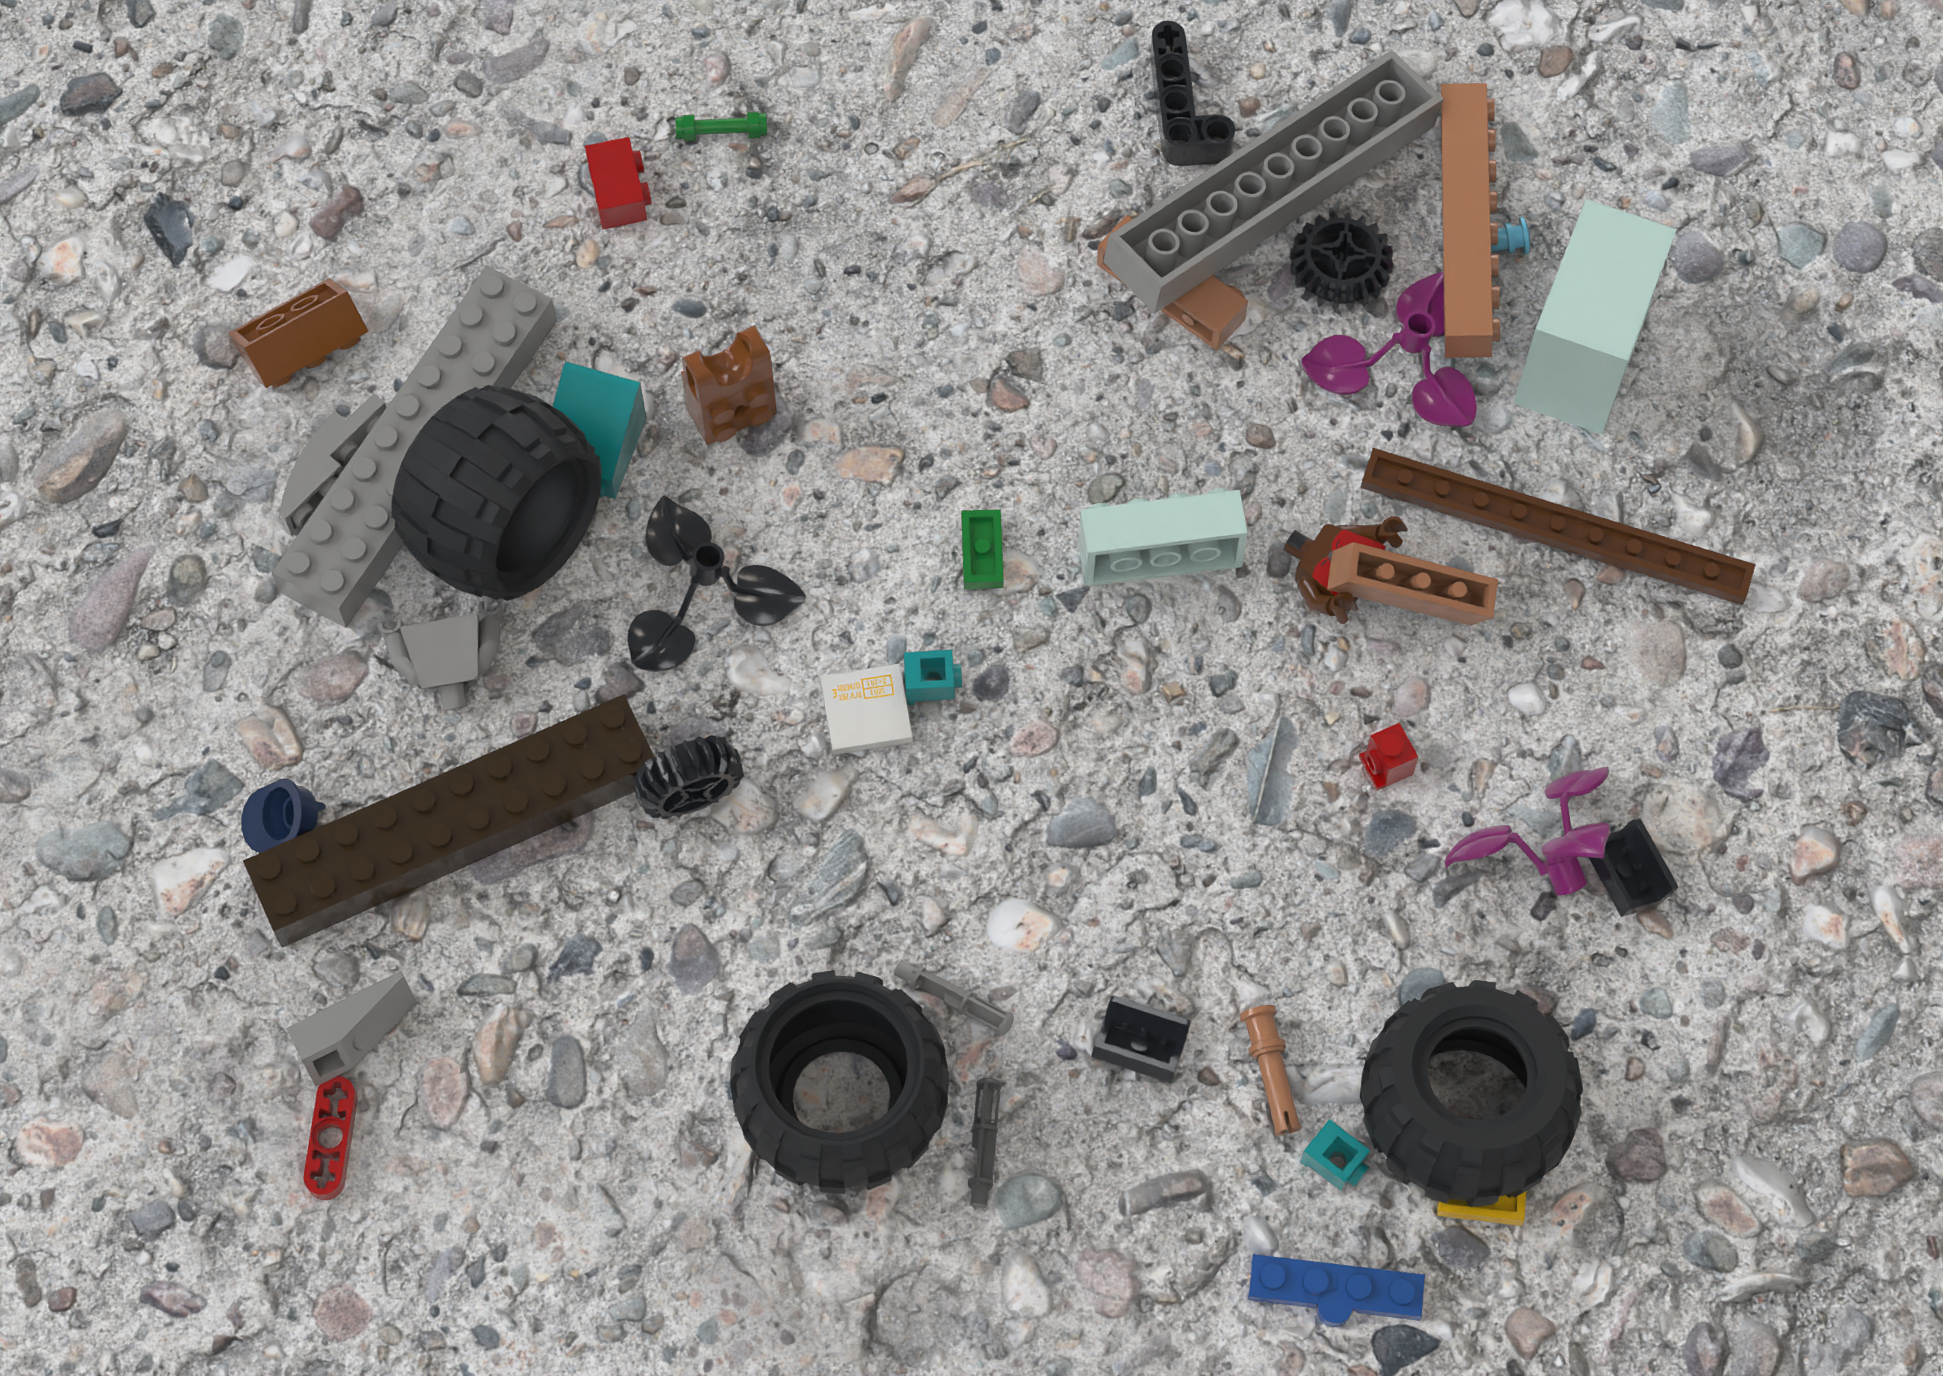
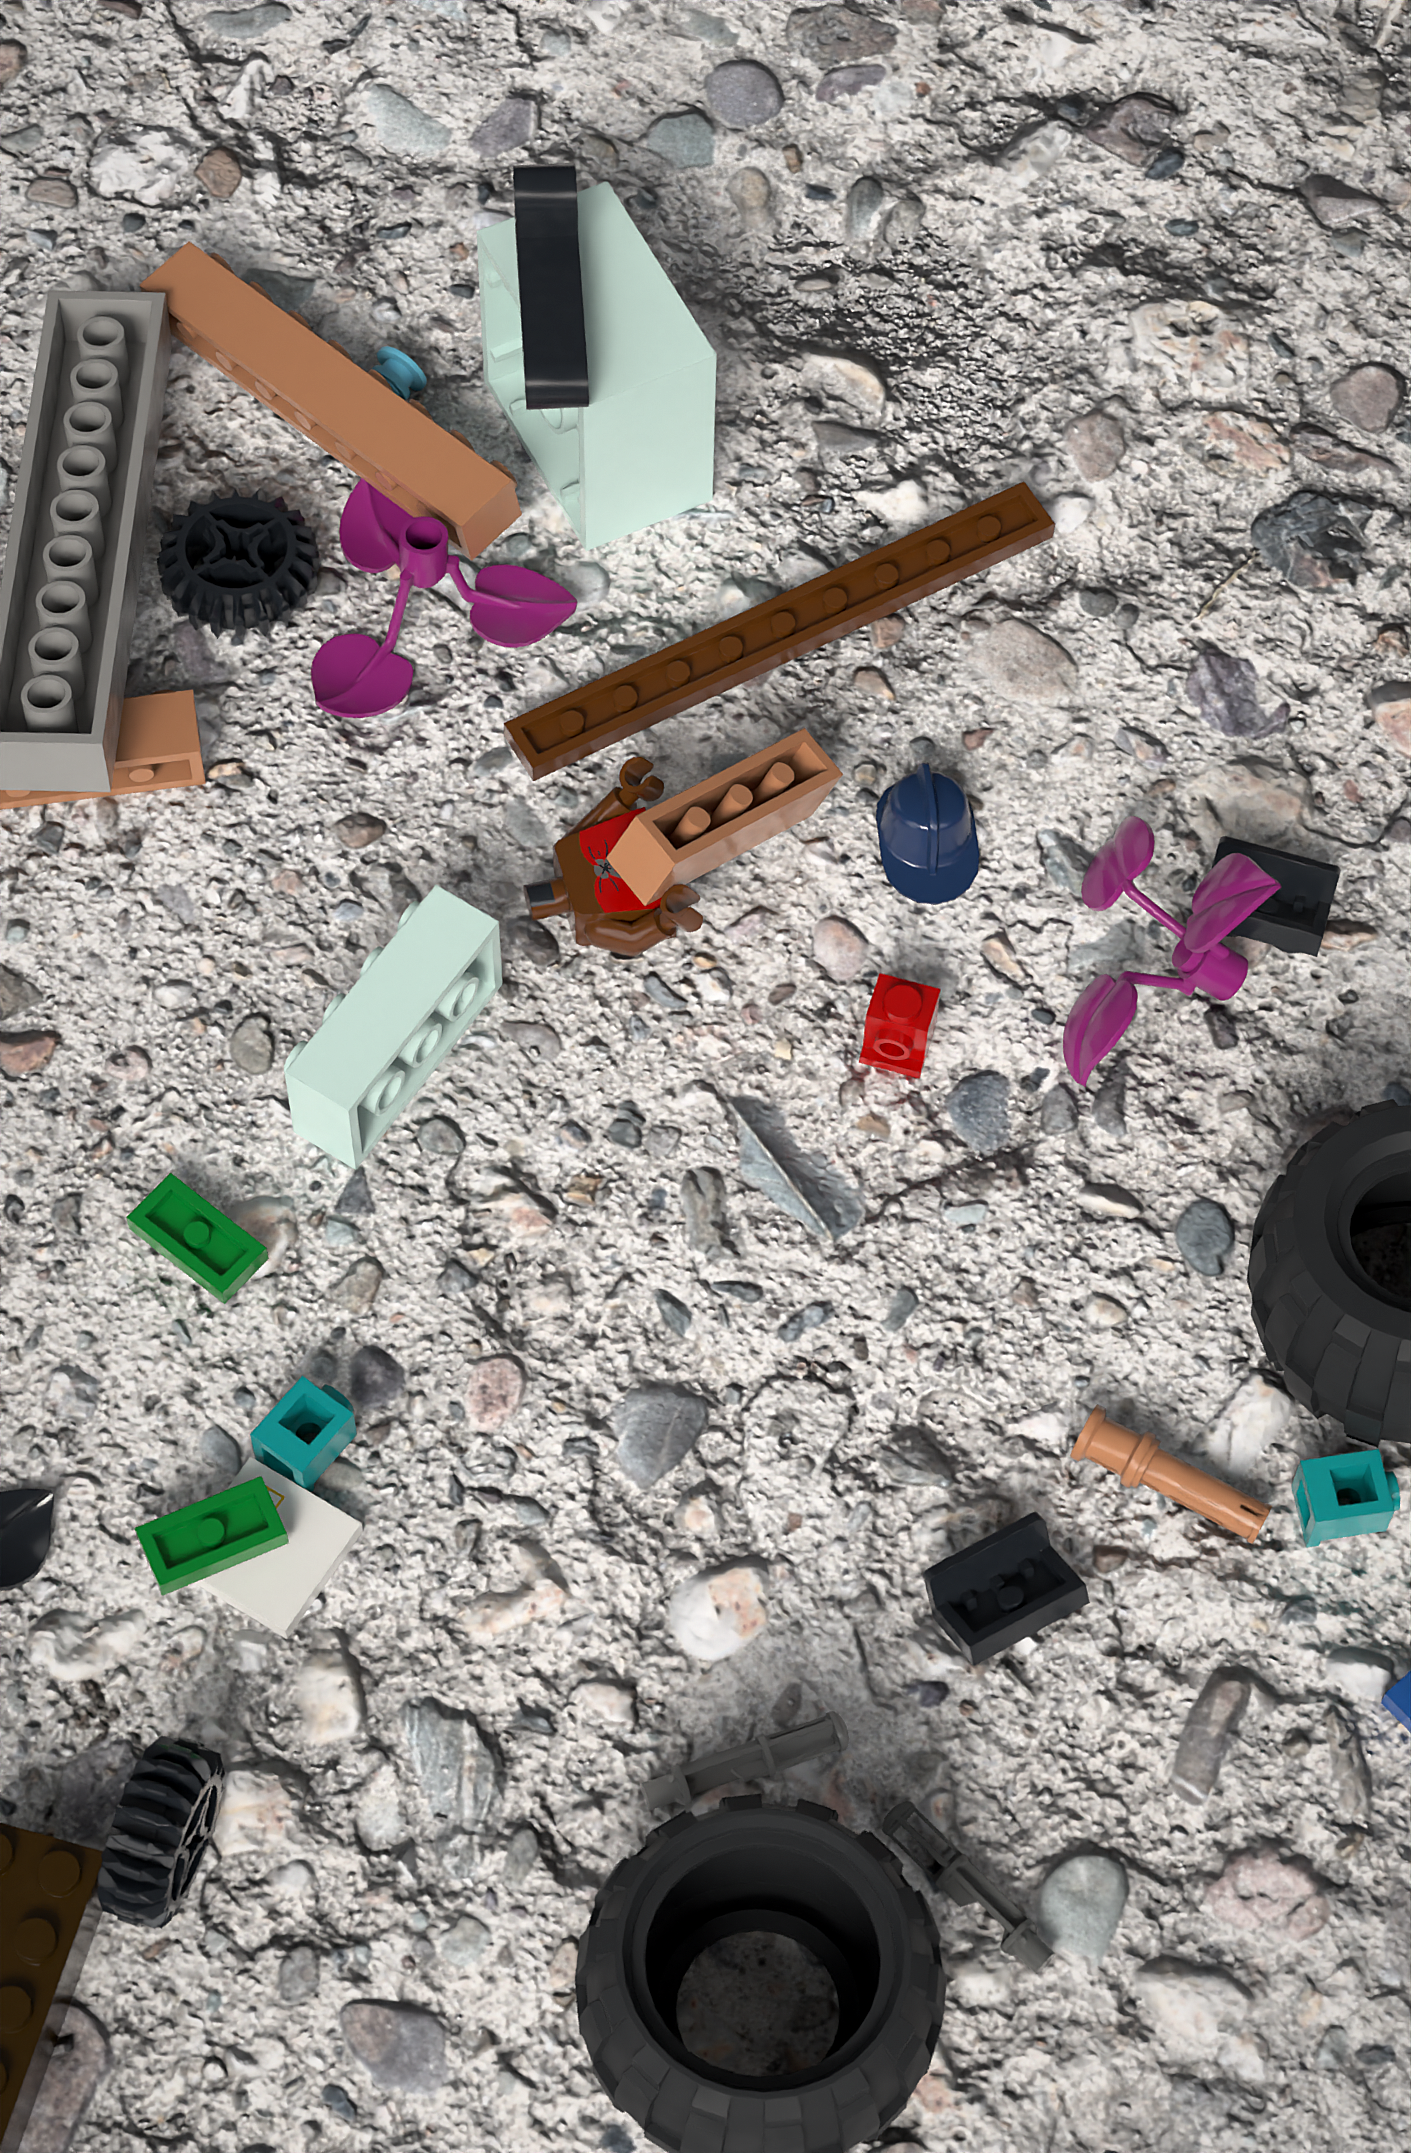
camera: 50 degrees left, 5 degrees down
(843, 679) = (211, 1535): none -> green plate
(1510, 687) = (927, 837): none -> dark blue piece
(1578, 258) = (550, 286): none -> black beam

